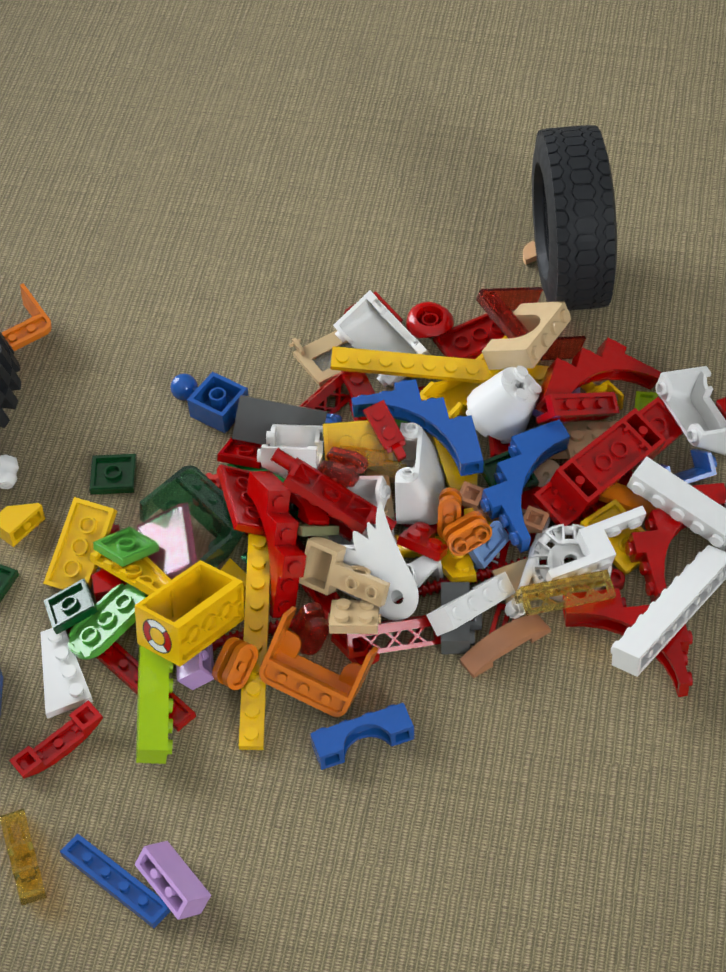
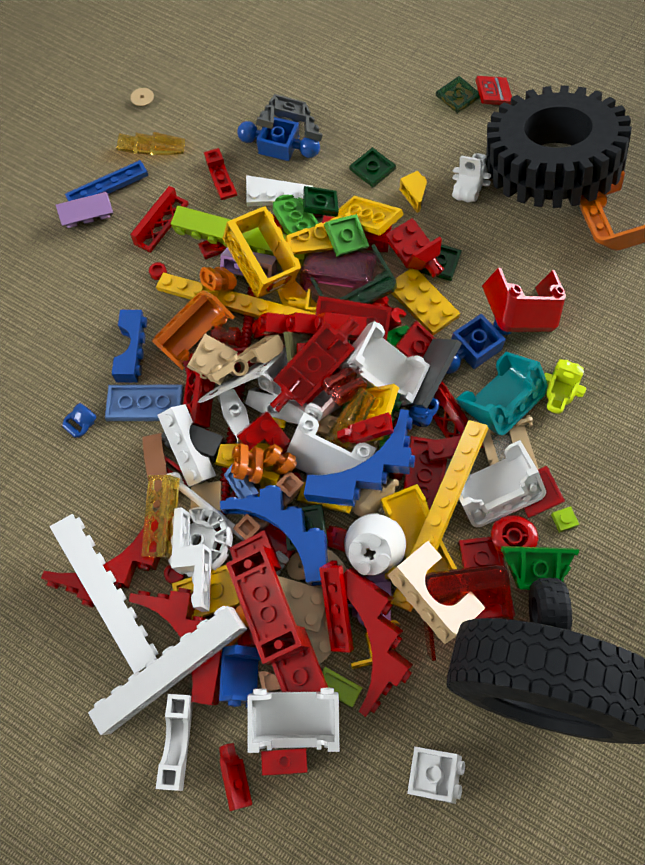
camera: 110 degrees right, 15 degrees up
(118, 481) = (415, 248): none -> red plate
(154, 792) = (154, 219): none -> red fence
(168, 374) = (525, 313): none -> red windscreen
(183, 452) = (424, 301): none -> yellow plate
(234, 564) = (302, 303): none -> yellow bracket
(236, 758) = (156, 270): none -> red tile
(243, 323) = (563, 385): none -> neon yellow piece
(272, 365) = (509, 395): none -> teal windscreen
(391, 294) = (565, 519): none -> lime plate
(429, 693) = (141, 401): none -> medium blue tile
(451, 294) = (532, 563): none -> green wing
(479, 744) = (83, 417): none -> blue piece
(493, 267) = (550, 603): none -> black tyre
(674, 460) = (269, 681): none -> light nougat tile
(679, 317) = (436, 775): none -> white plate

